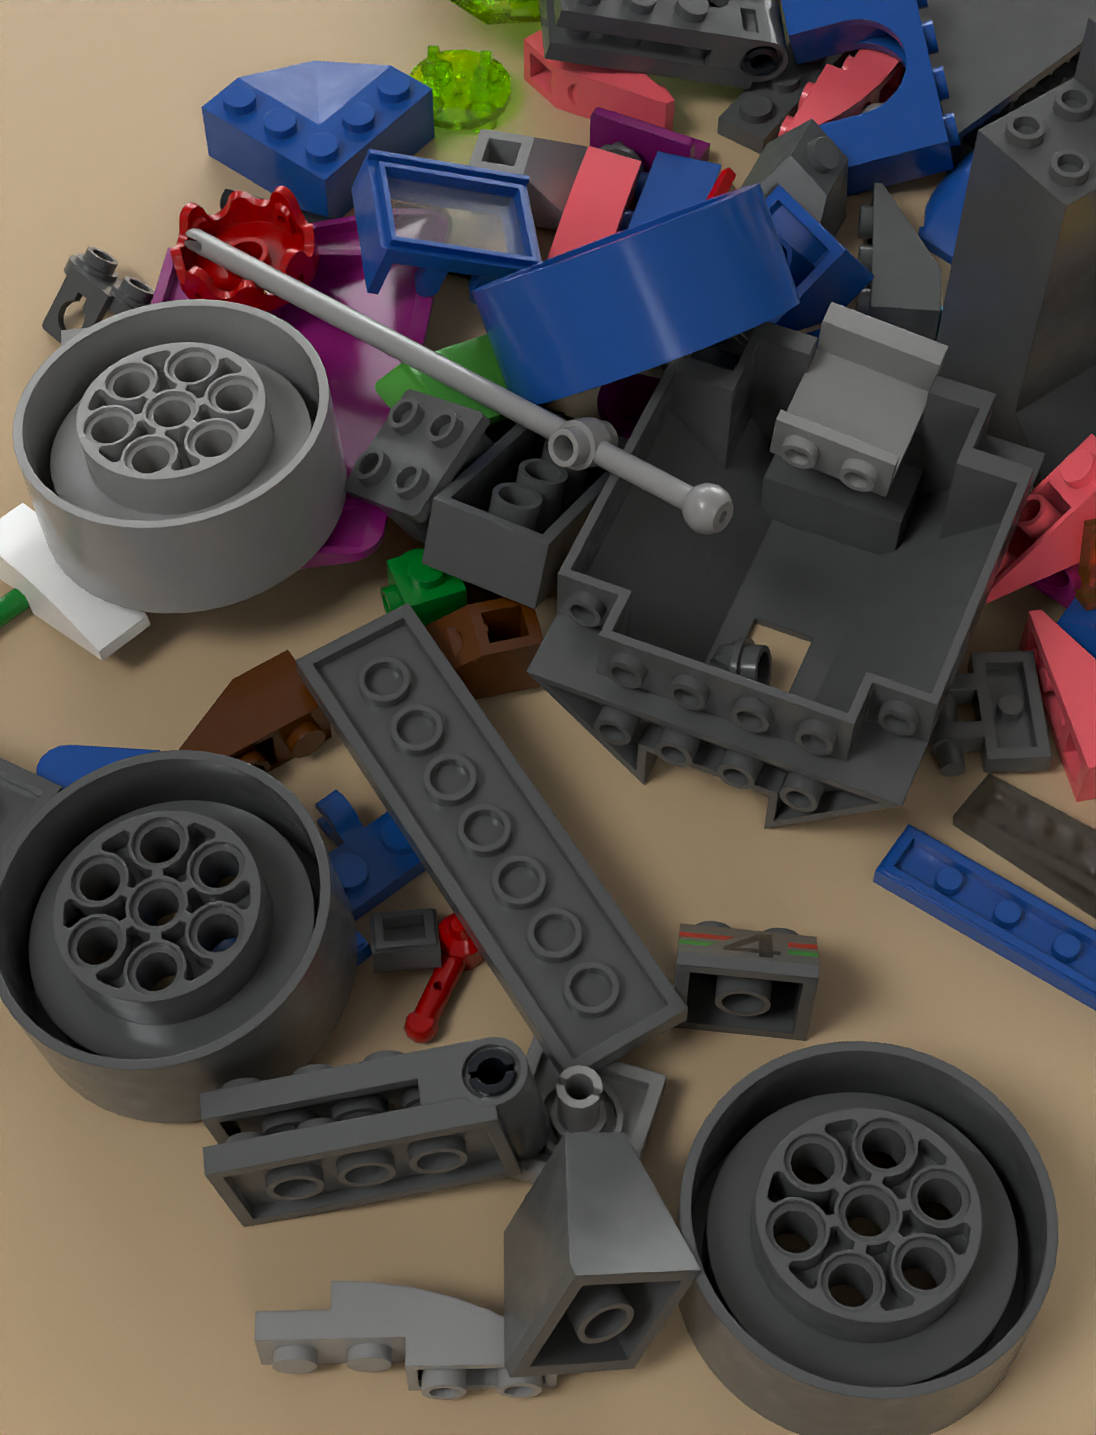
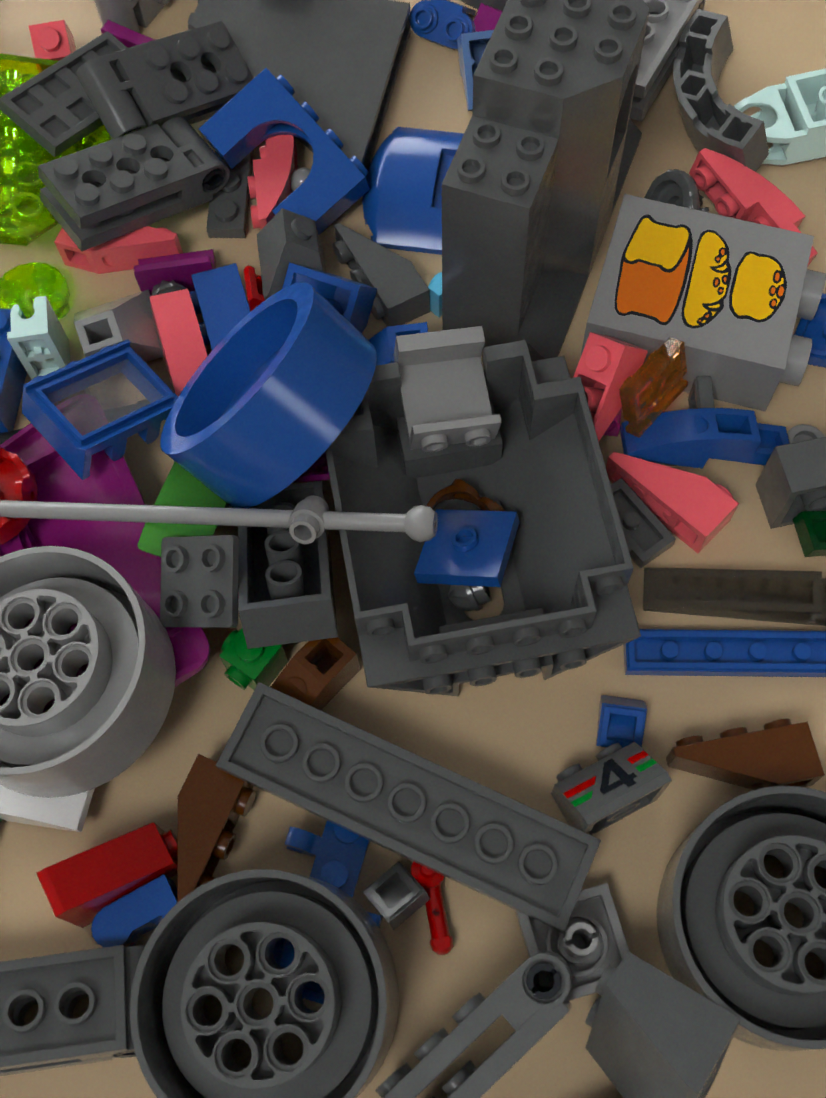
camera: 30 degrees left, 10 degrees up
(92, 704) = (108, 872): none -> red slope
(433, 122) = (39, 339): none -> light aqua hinge
(769, 612) = (468, 548): none -> blue plate
(815, 557) = (463, 491): none -> reddish brown cap
(831, 920) = (620, 721): none -> blue slope
(1003, 1058) = (754, 760): none -> reddish brown slope

